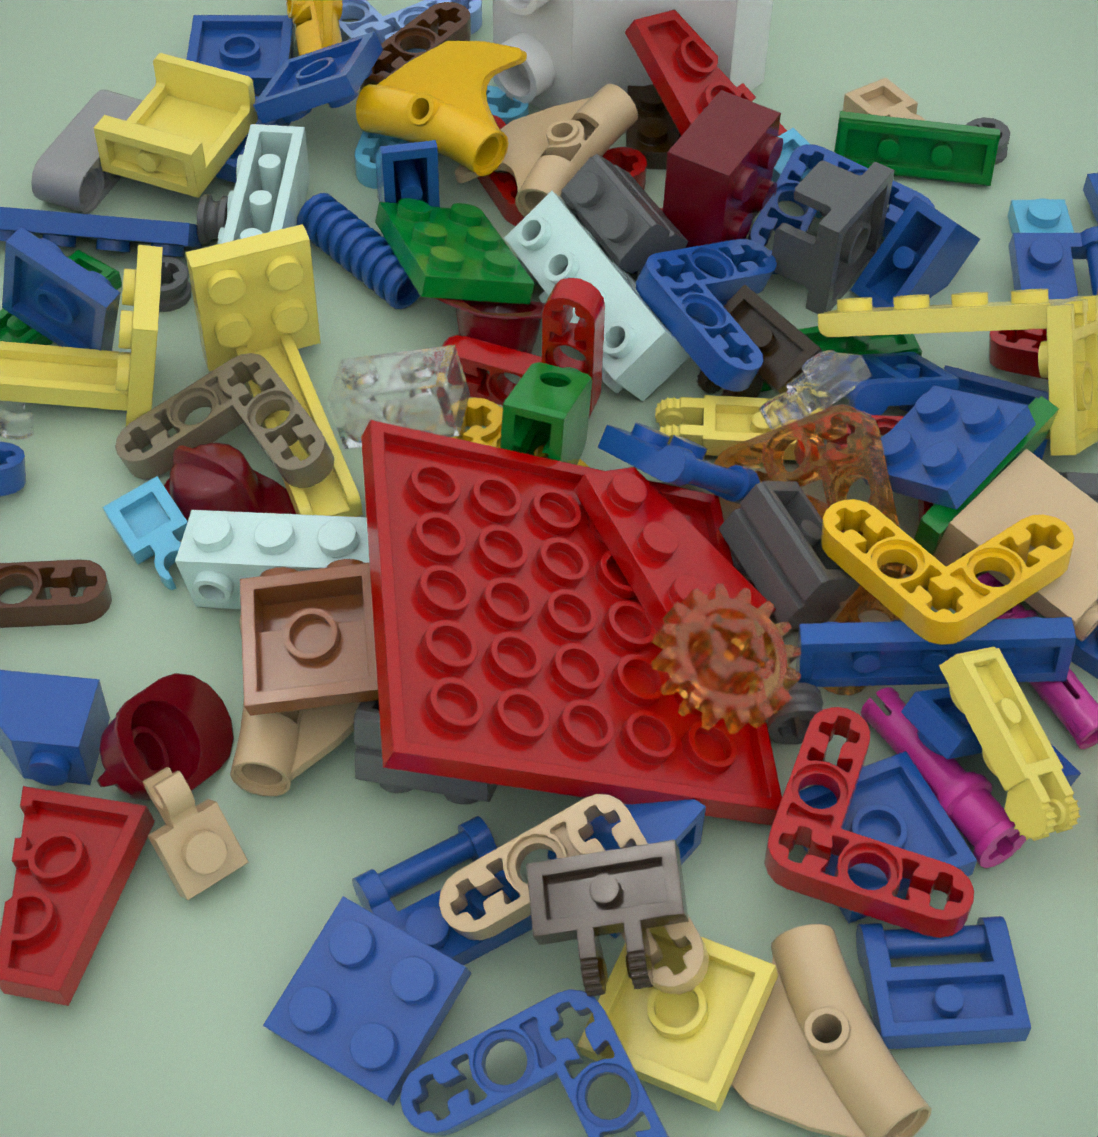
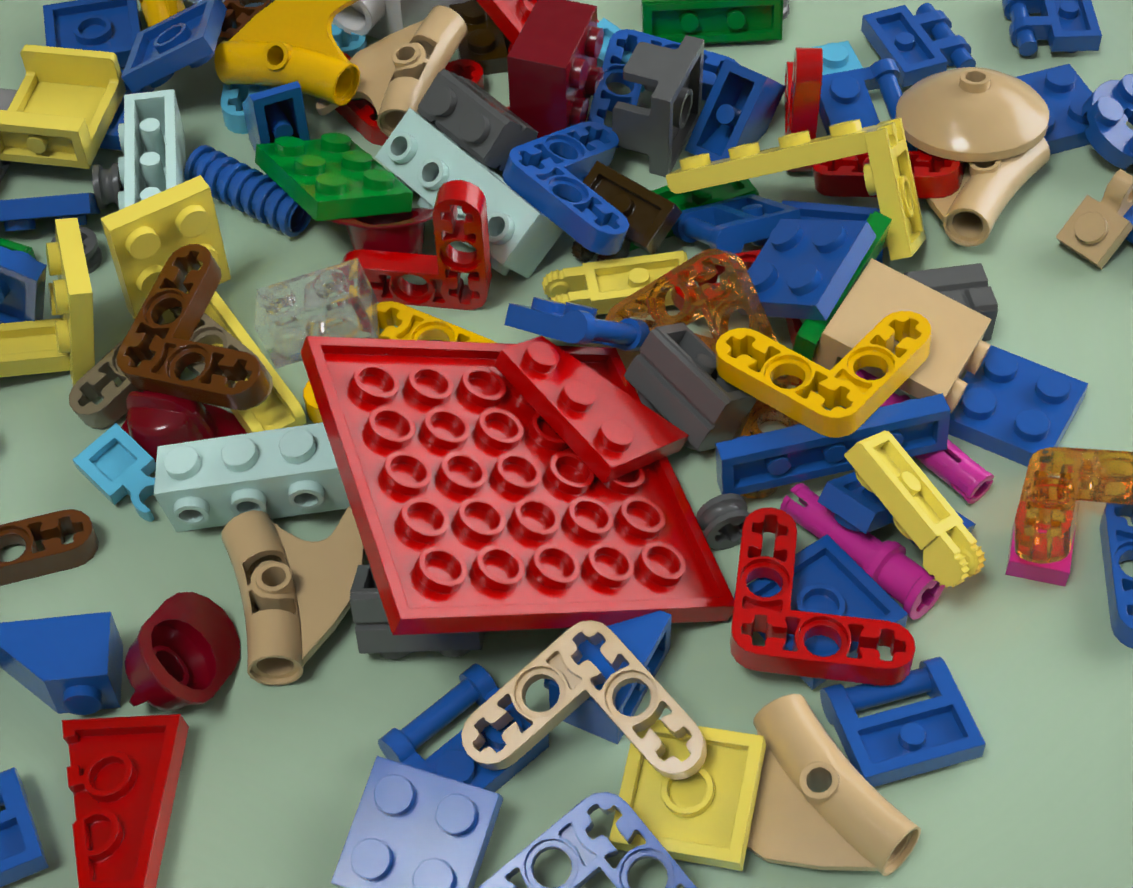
camera: 10 degrees left, 0 degrees up
(196, 840) = (231, 734): tan plate -> none
(217, 409) = (172, 345): none -> reddish brown beam
(308, 638) = (295, 537): plate -> none
(550, 410) = (454, 300): green torso -> none
(605, 896) = (609, 706): hinge -> none
(726, 658) = (660, 484): clear orange gear -> none
(823, 382) = (683, 235): clear plate -> none
(994, 251) = (803, 94): none -> red beam

